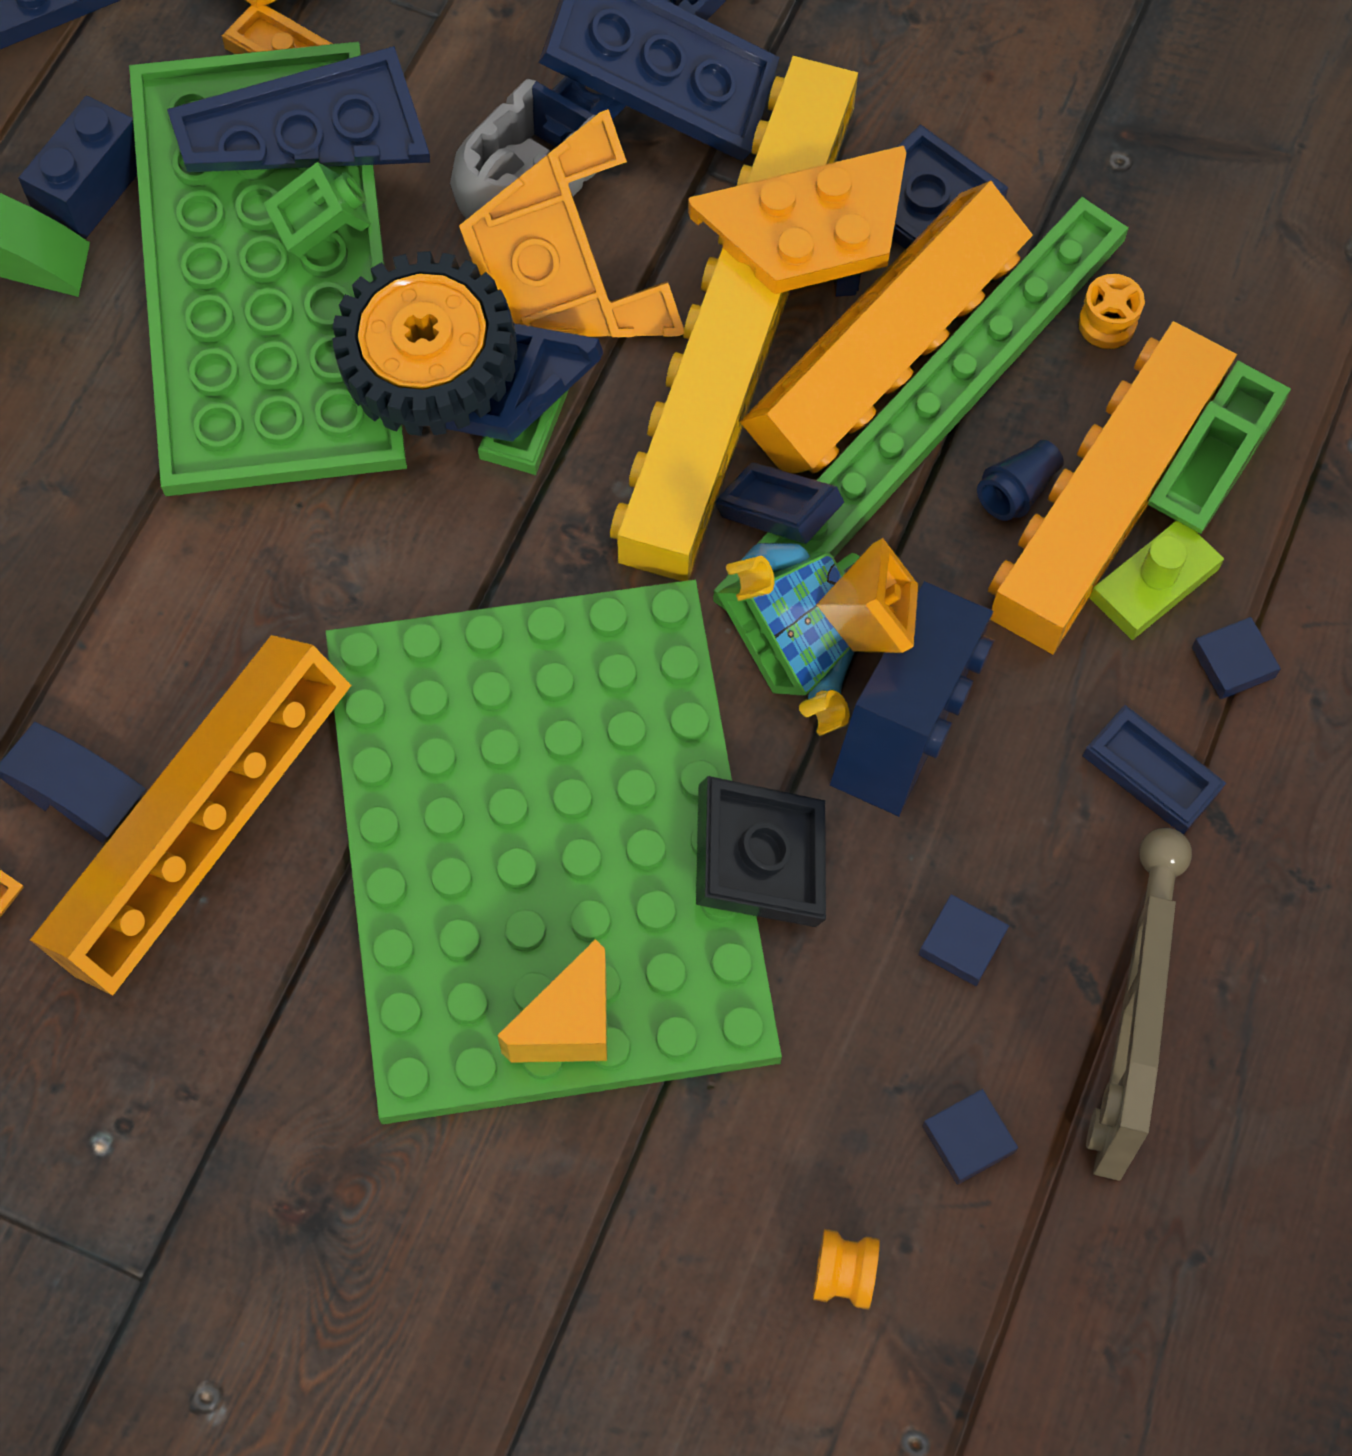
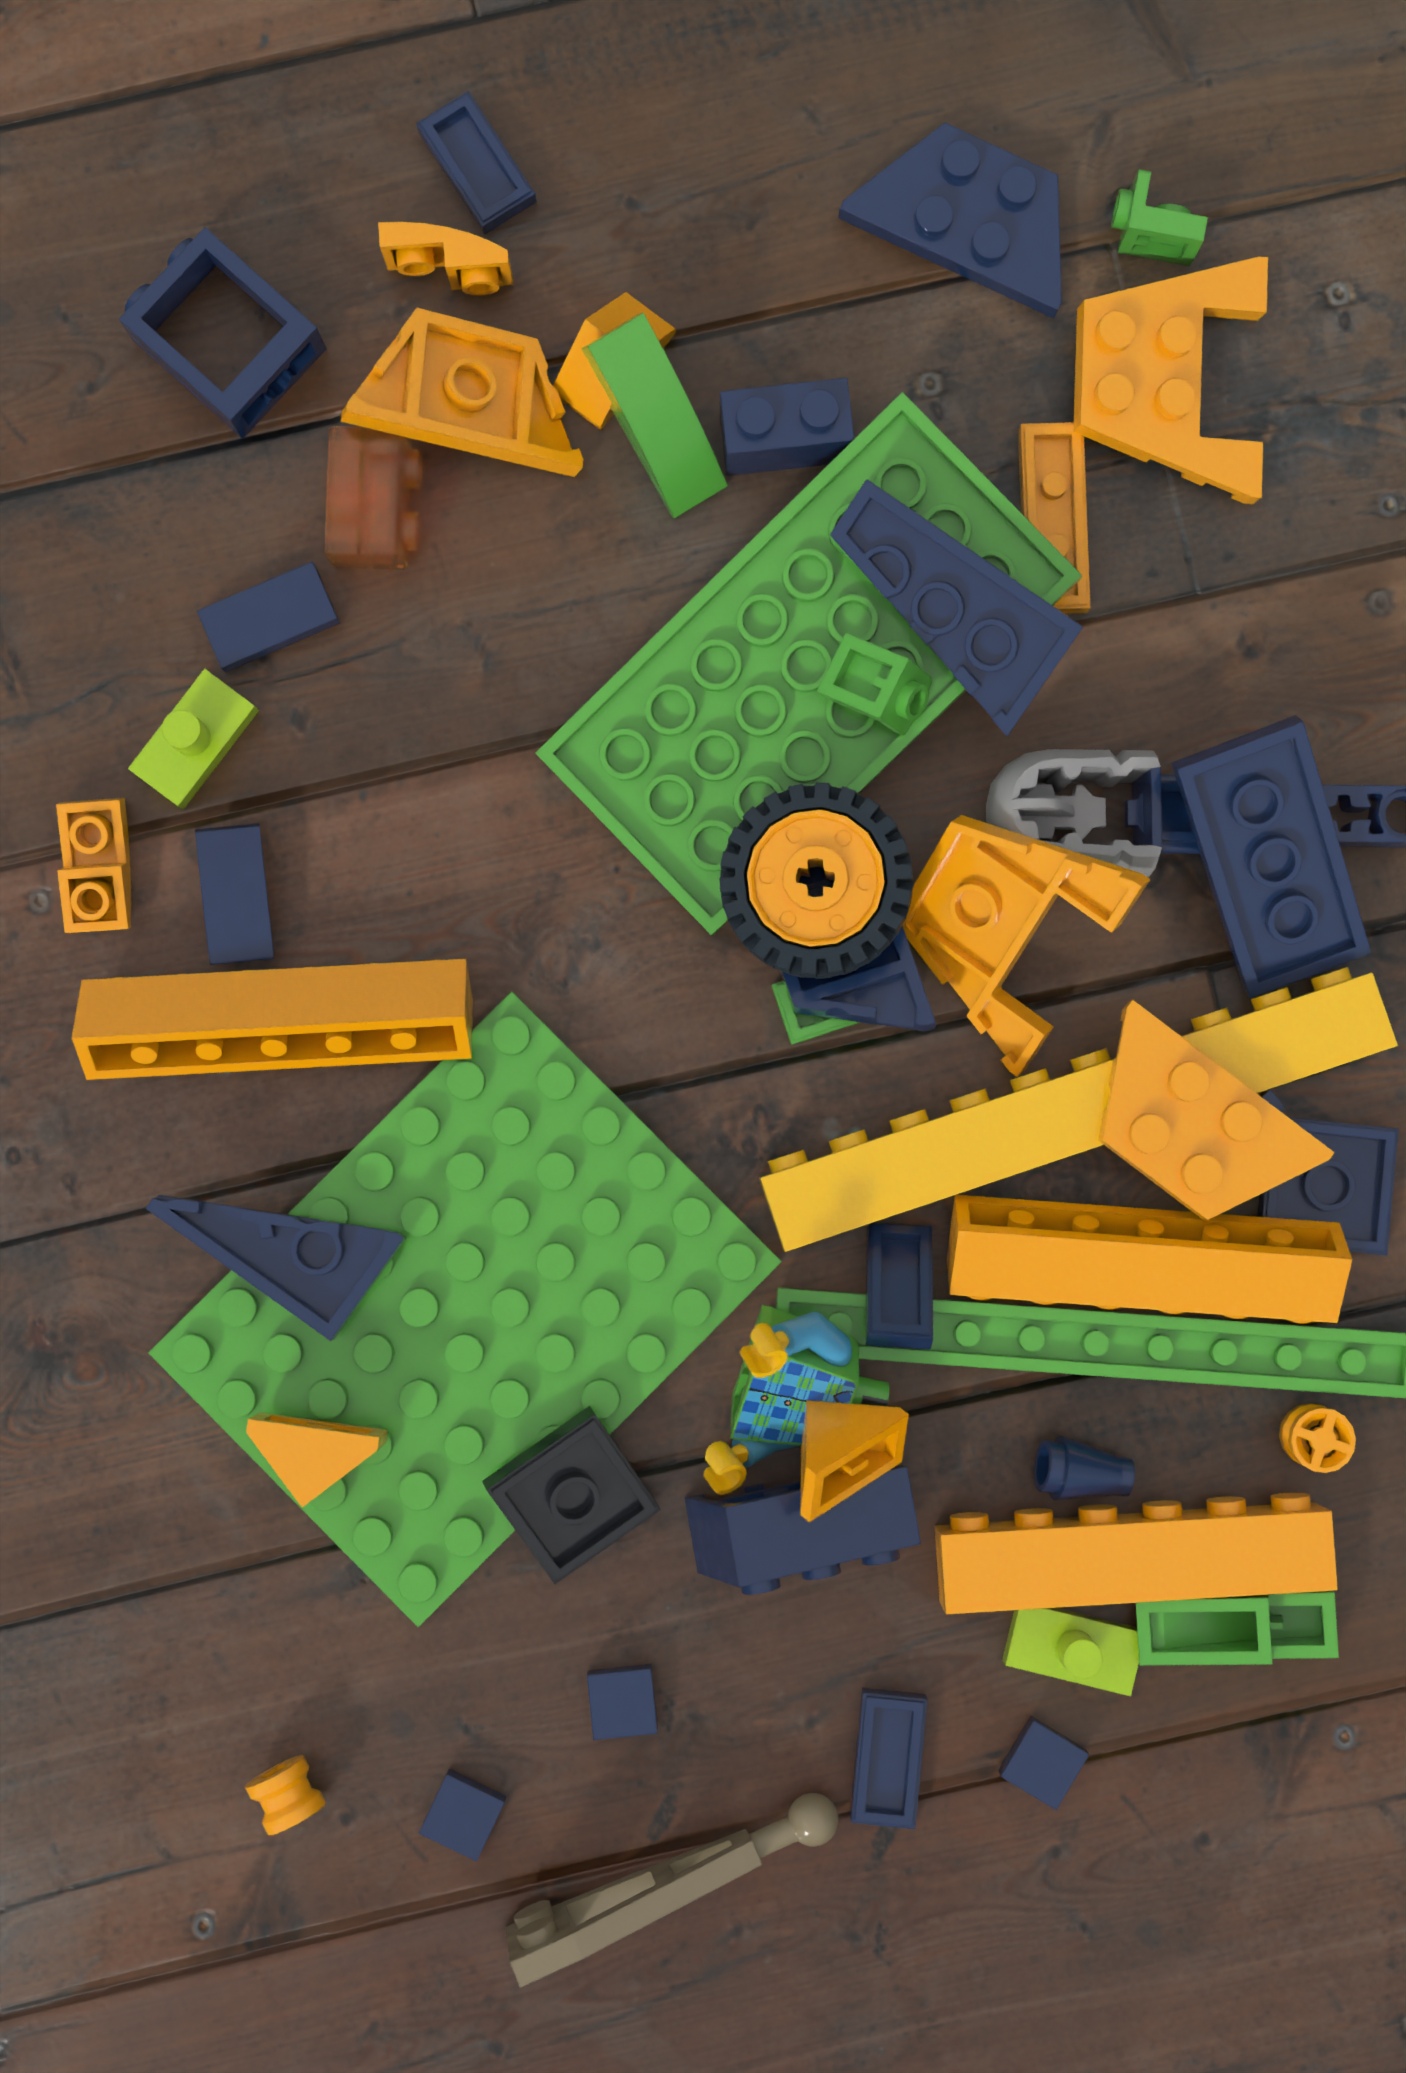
camera: 55 degrees right, 20 degrees up
(406, 921) = (300, 1262): none -> dark blue wing

